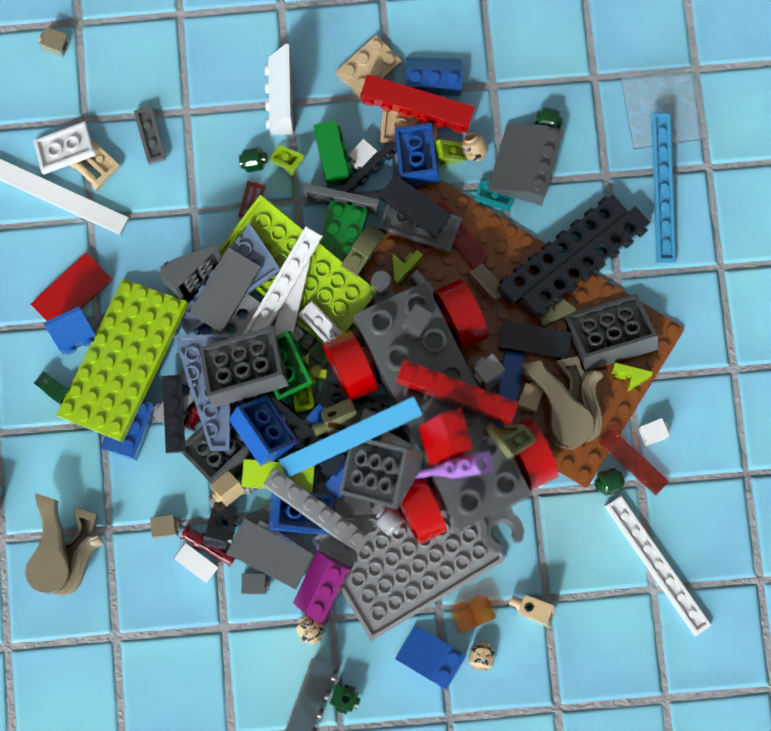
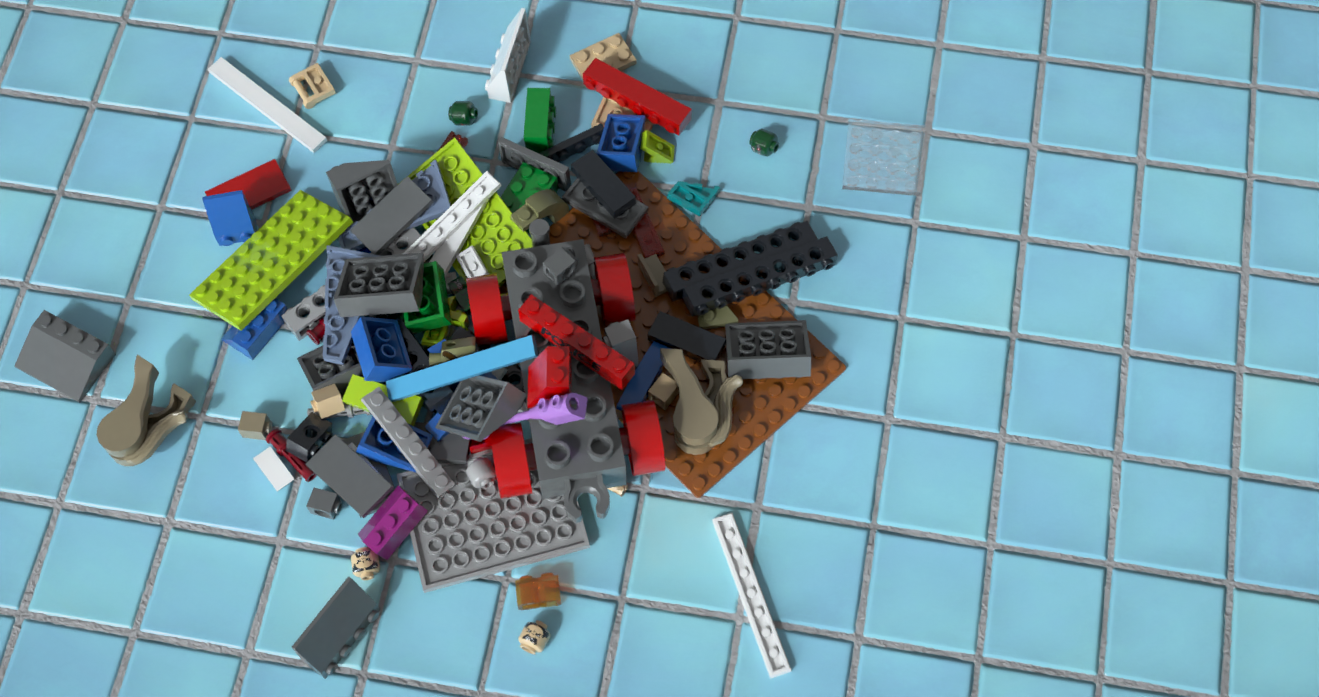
camera: 20 degrees right, 15 degrees down
(51, 387) = (194, 269): dark green leg -> none
(64, 147) = (288, 63): white tile -> none
(150, 135) = (373, 71): dark grey plate -> none
(174, 414) = (301, 319): black plate -> none
(287, 159) = (497, 121): lime slope -> none
(338, 694) = (375, 640): dark green brick -> none
(361, 155) = (568, 129): white brick -> none
(402, 270) = (588, 234): lime slope -> none
(430, 657) = (481, 625): blue slope -> none
(435, 75) = (665, 79): blue slope -> none
(474, 147) = (682, 148): tan head -> none
(511, 438) = (621, 404): olive wing -> none
(525, 162) = (730, 174): dark grey slope -> none
(542, 612) = (604, 603): tan torso -> none
(609, 481) = (723, 495): dark green head -> none
(633, 462) = (754, 482): clear red tile -> none
(635, 375) = (780, 396): lime slope -> none
(654, 432) = (785, 458): white brick -> none
(663, 188) = (861, 229): dark azure tile -> none

